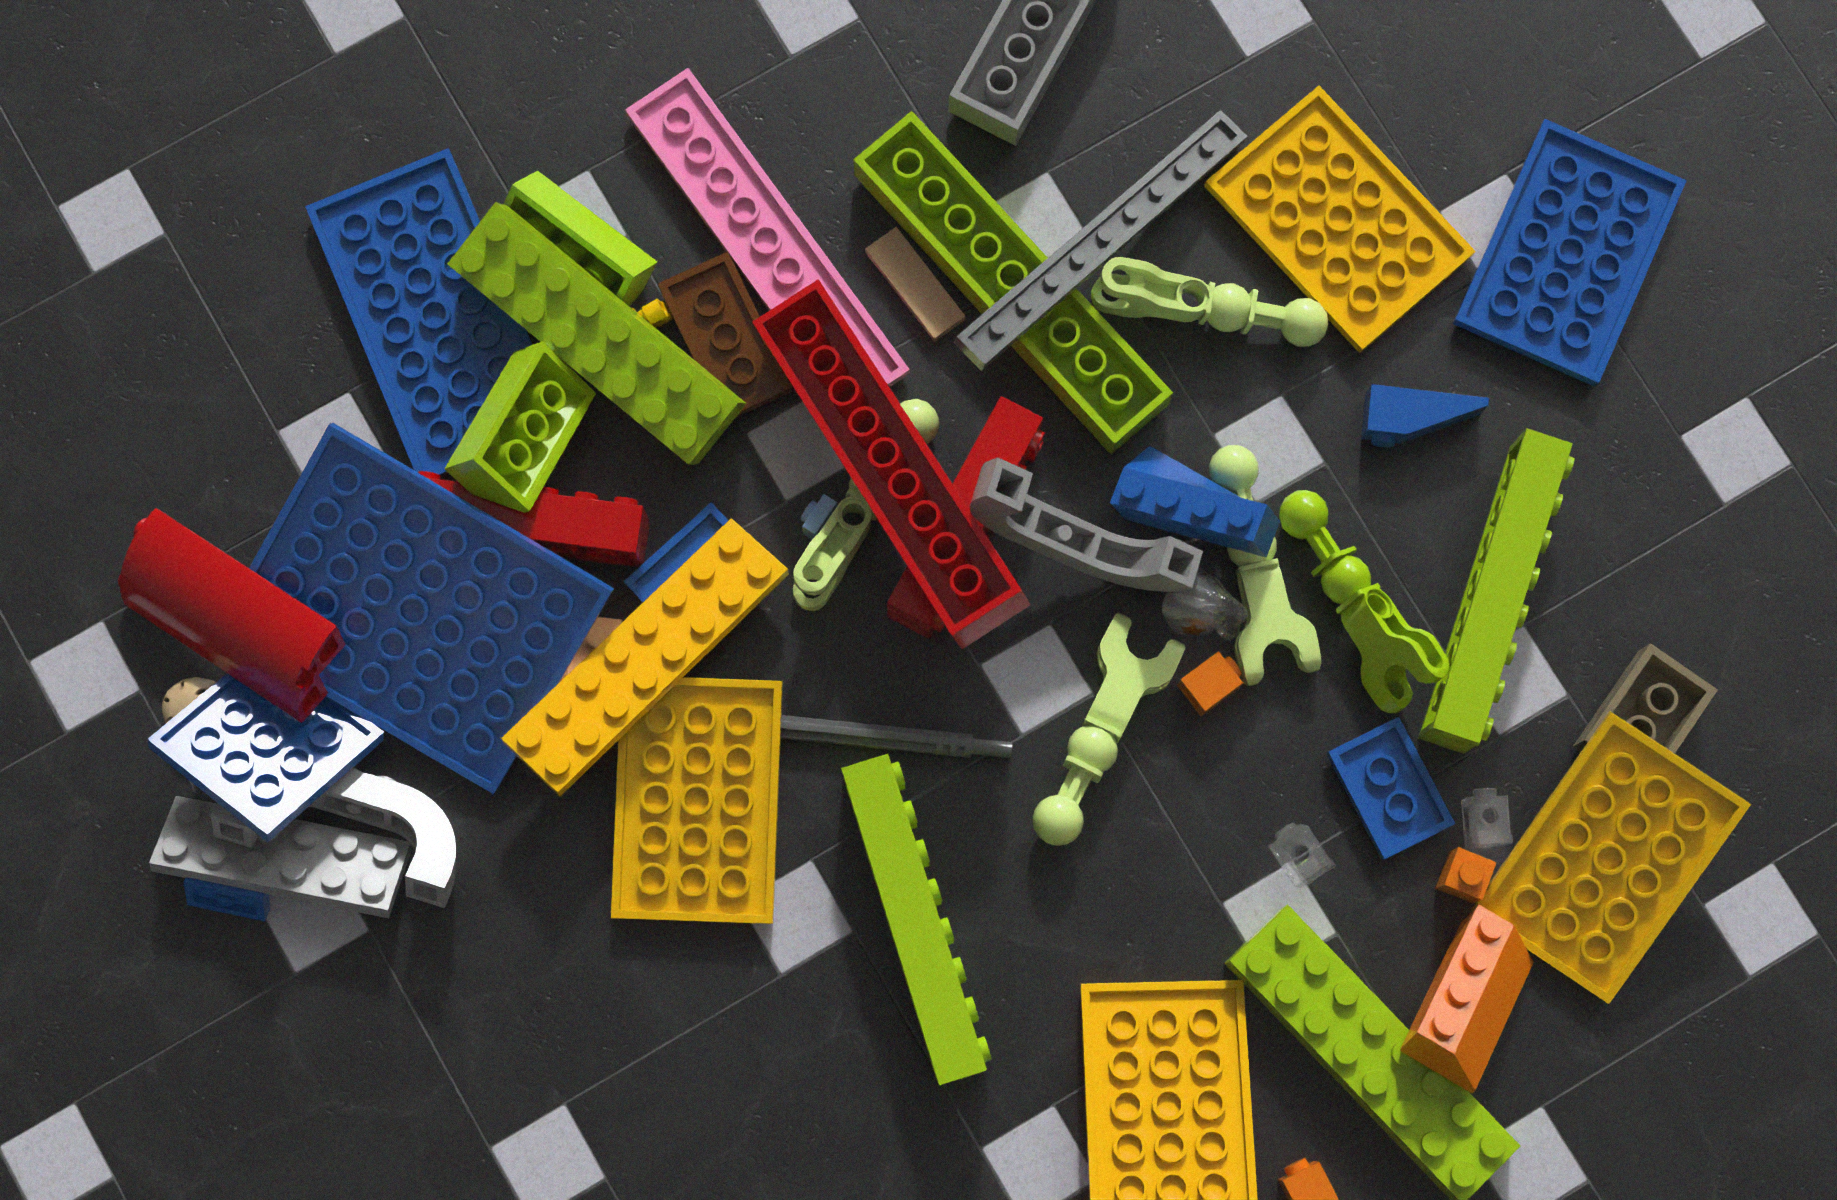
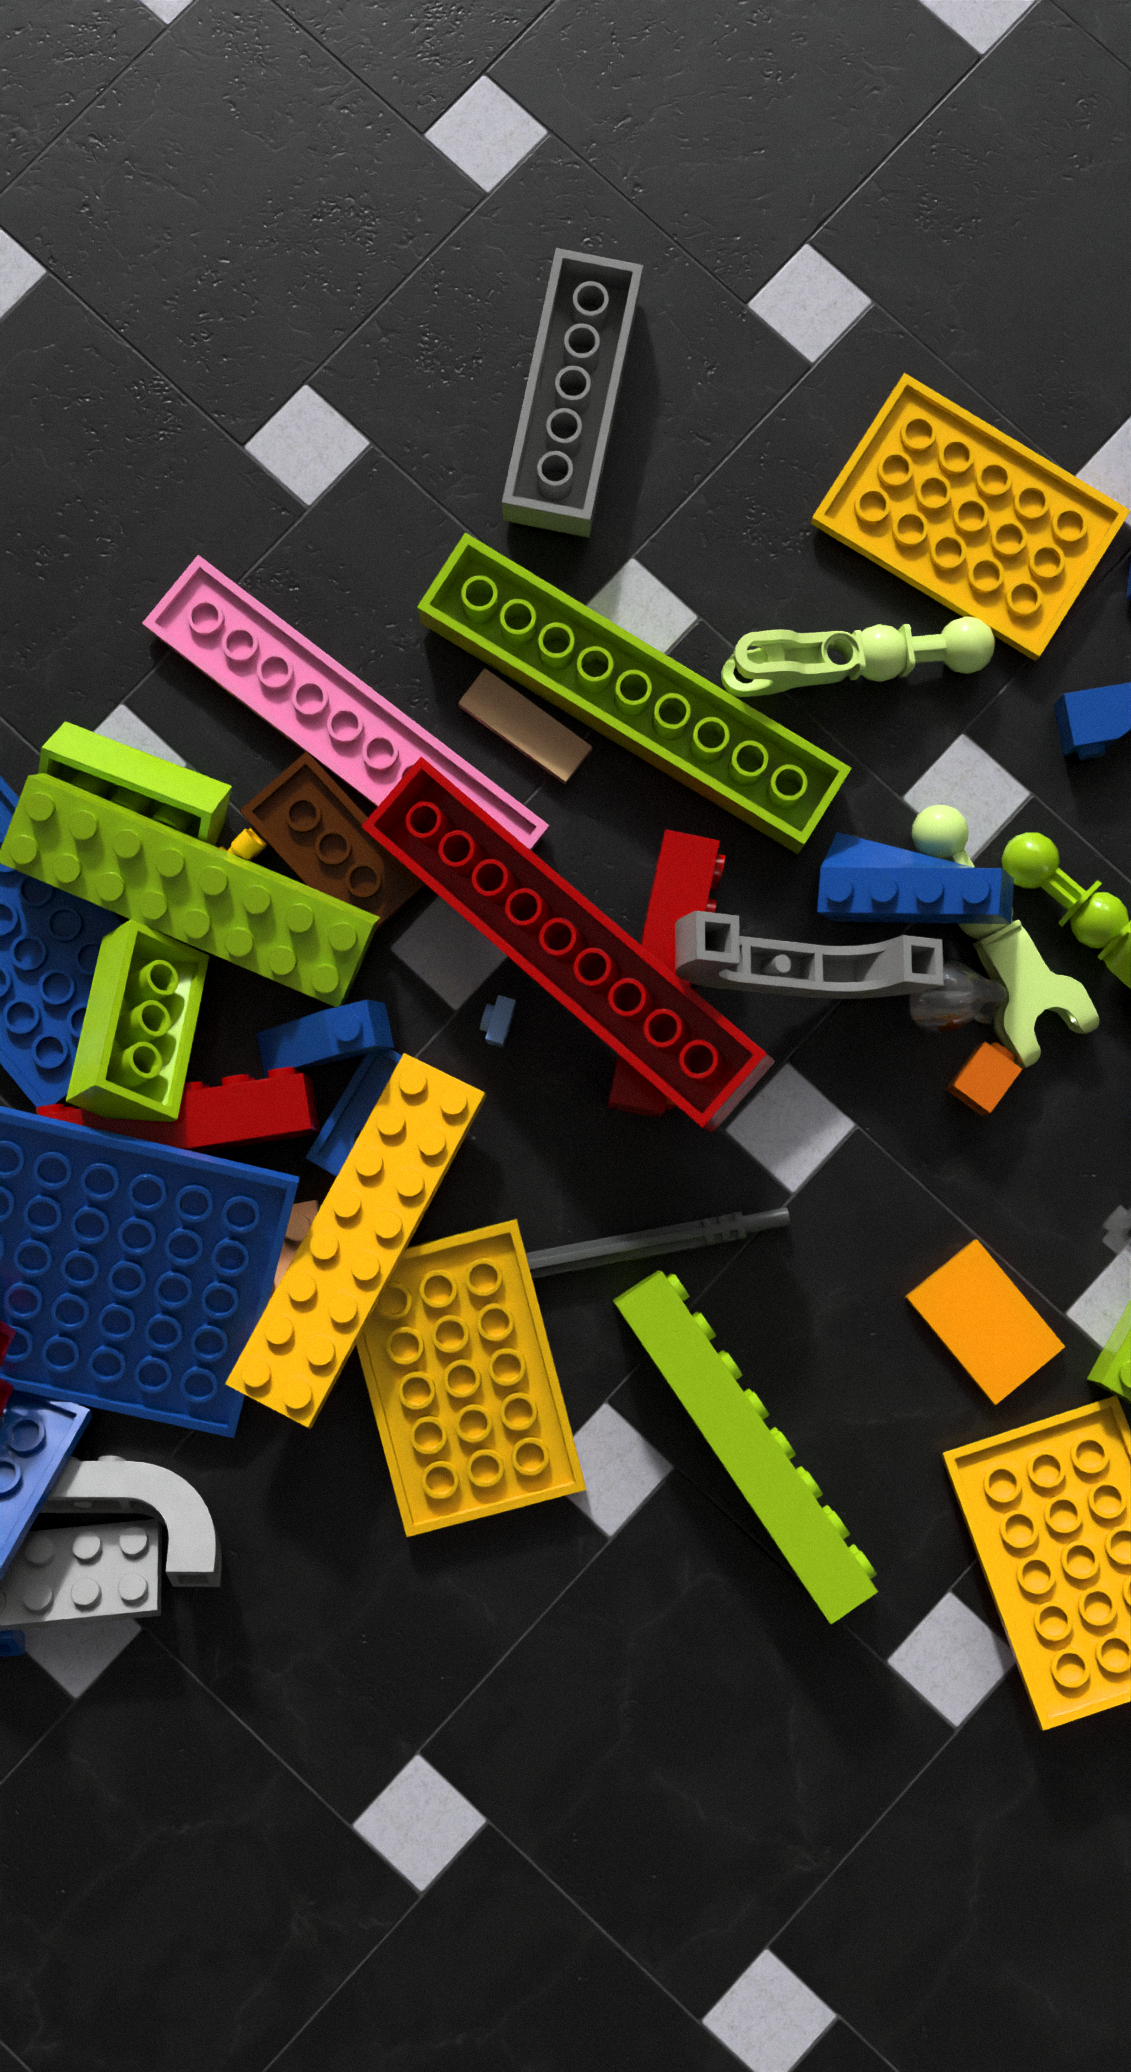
camera: 20 degrees left, 5 degrees up
(674, 486) = (326, 1036): none -> blue slope
(838, 542) = (532, 1042): yellowish green piece -> none
(1094, 745) = (883, 1155): yellowish green piece -> none
(1099, 240) = (718, 621): plate -> none
(1151, 887) = (985, 1322): none -> light orange tile

